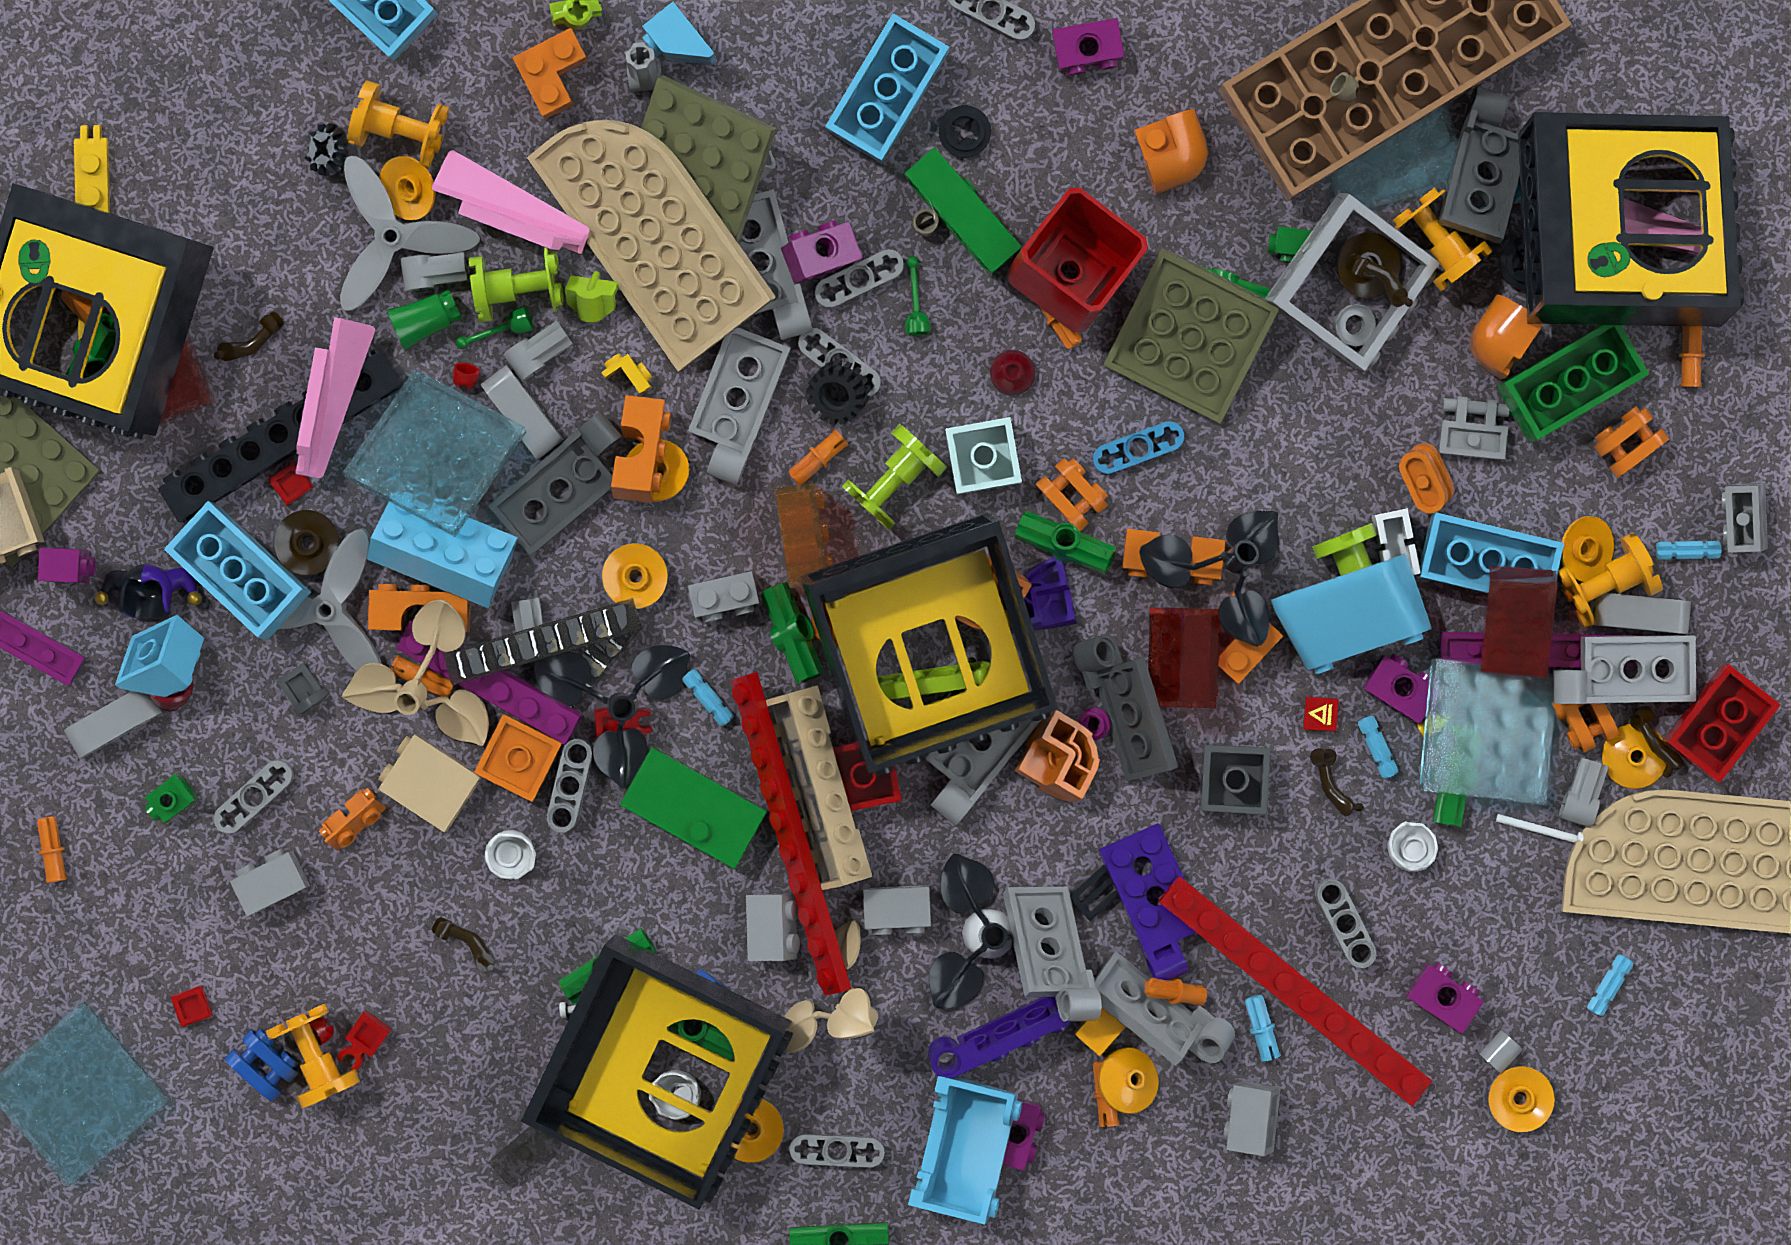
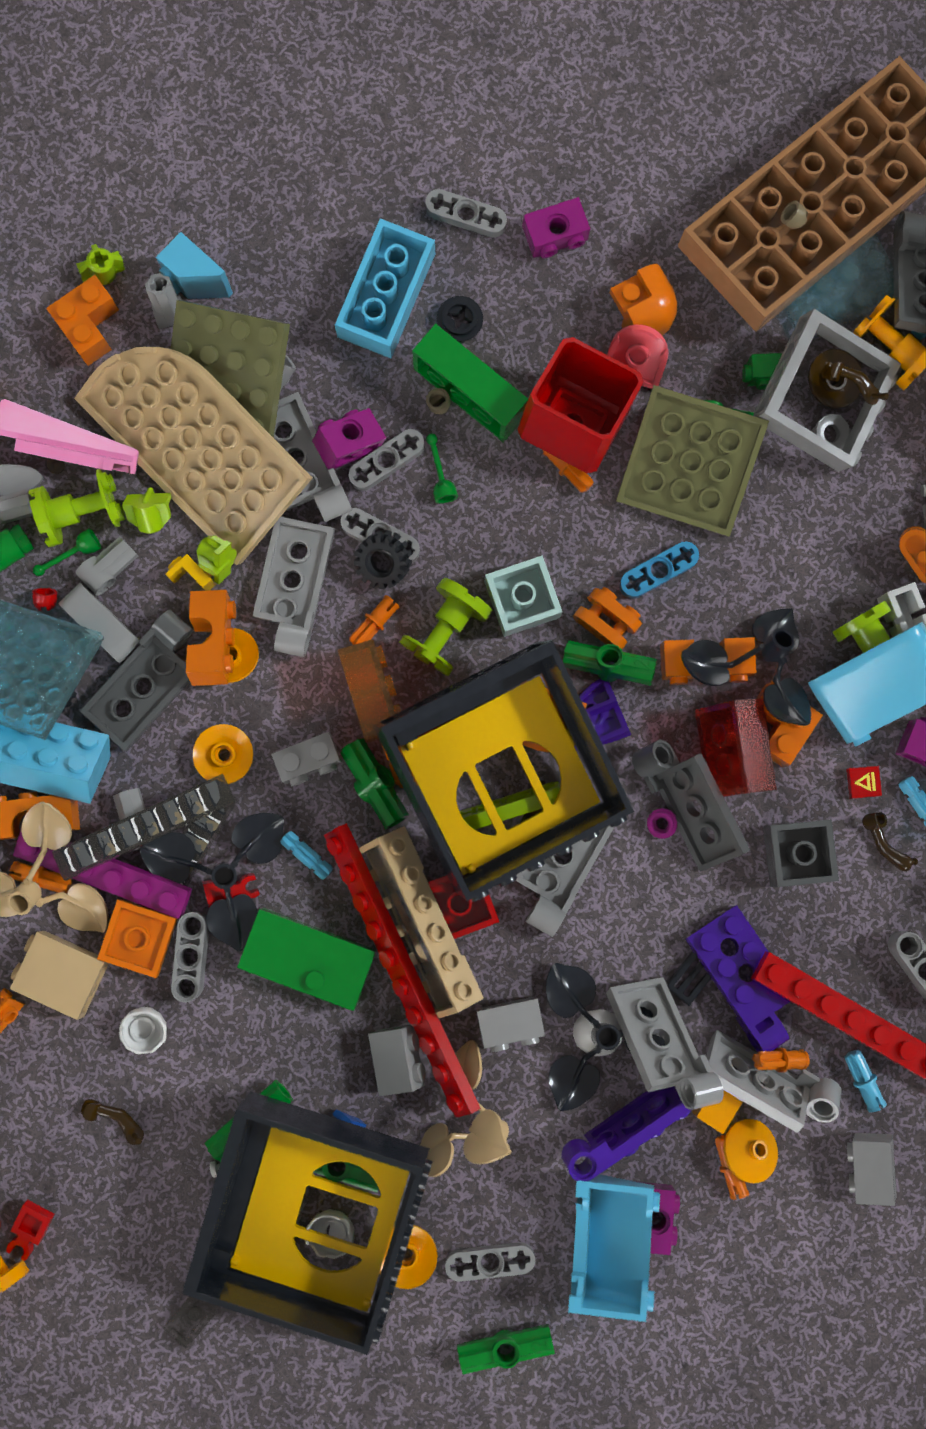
camera: 10 degrees left, 5 degrees down
(657, 361) = (216, 557): none -> lime piece
(1012, 372) = (535, 521): dark red brick -> none
(1060, 758) = (638, 859): orange brick -> none
(1153, 208) = (641, 350): none -> coral tile

